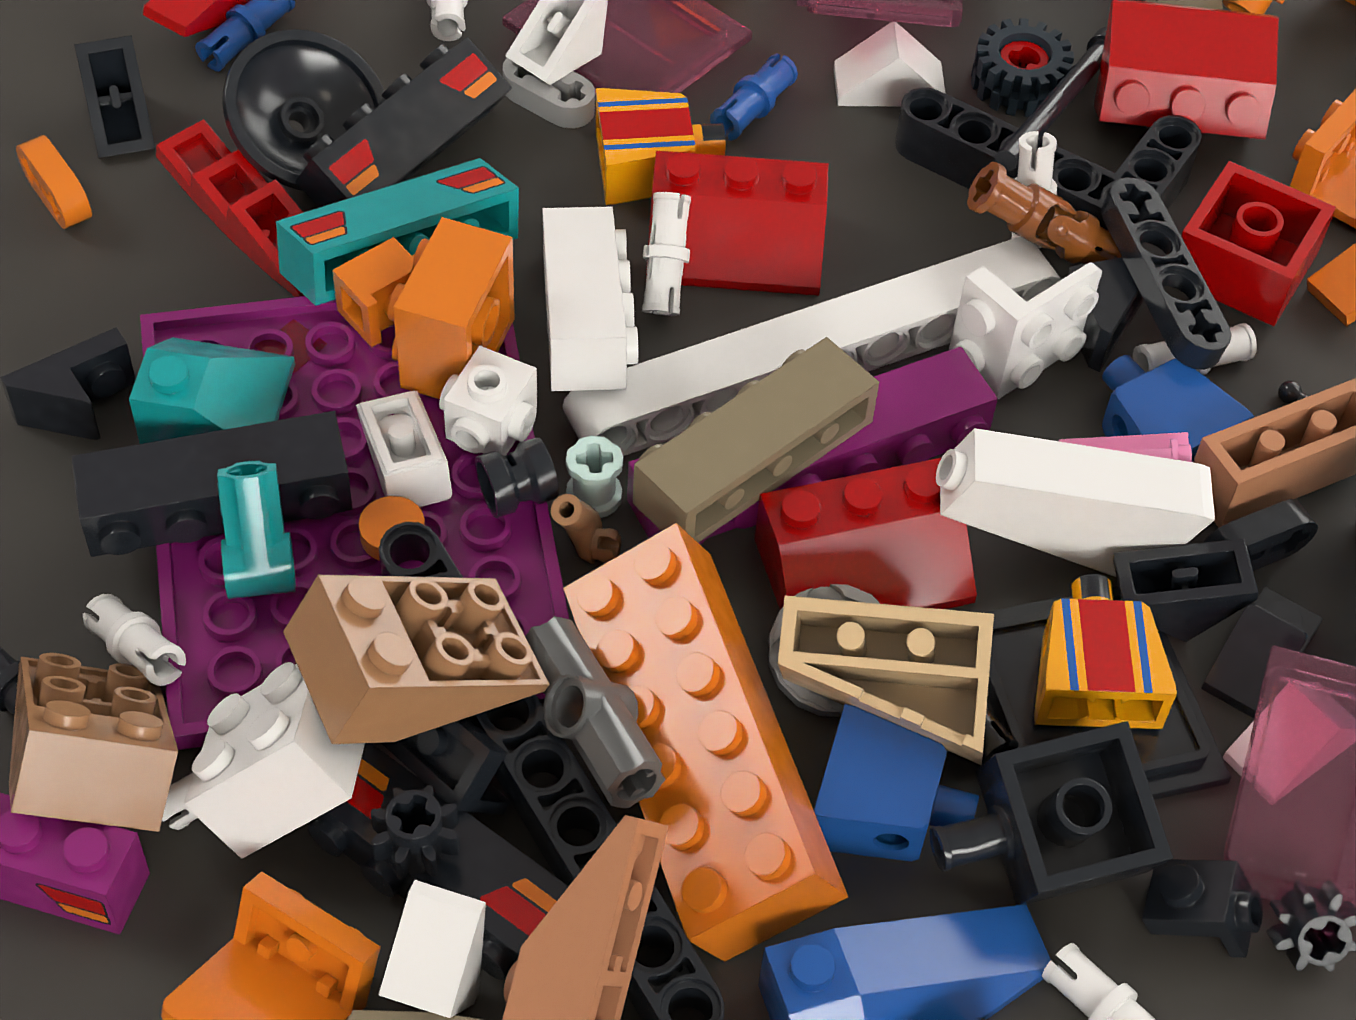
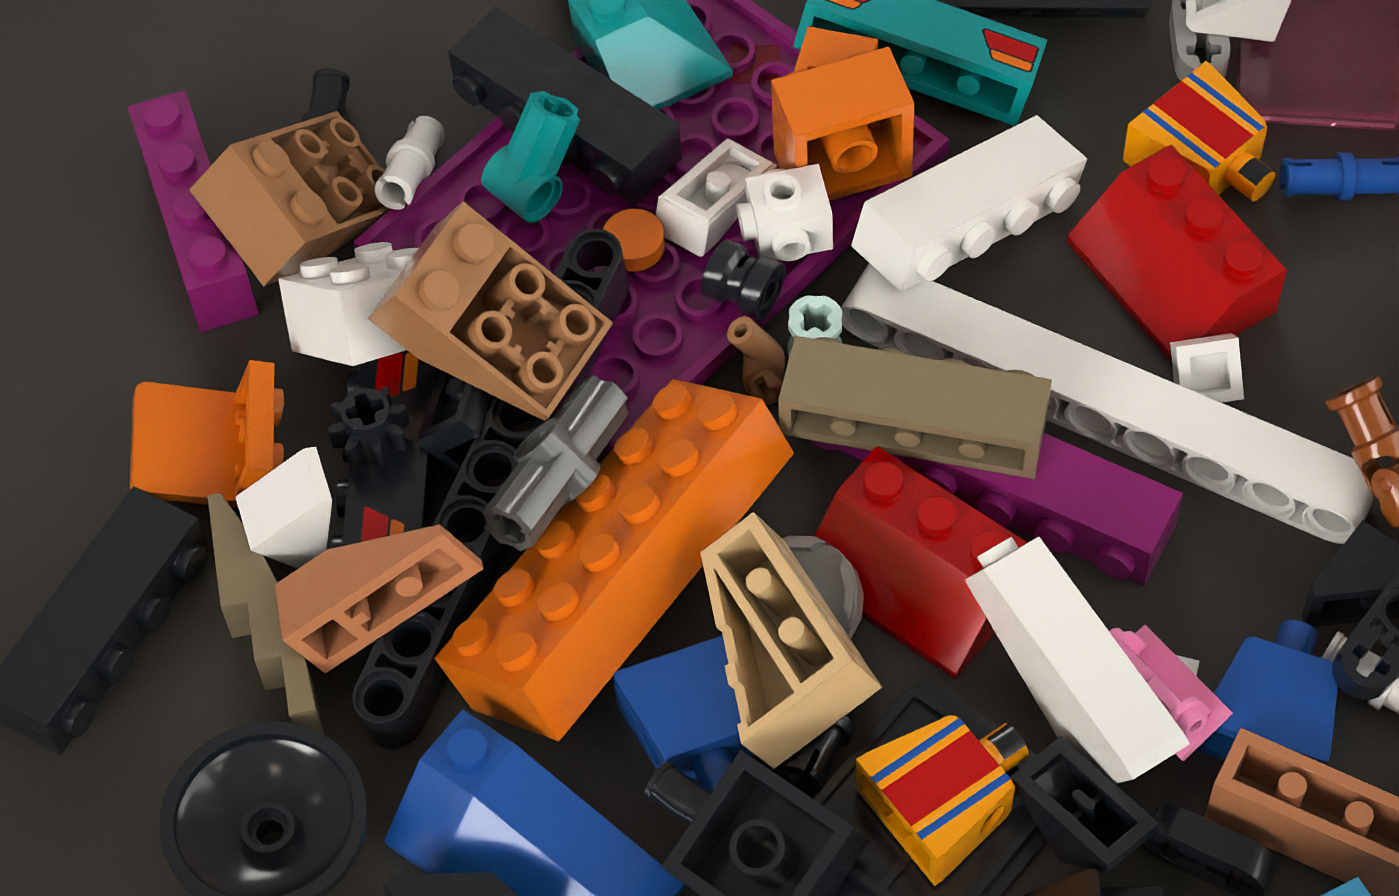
camera: 60 degrees right, 5 degrees up
(666, 253) = (1079, 228): white pin -> none
(849, 266) = (1209, 366): none -> white plate
(1017, 338) = (1255, 538): white bracket -> none

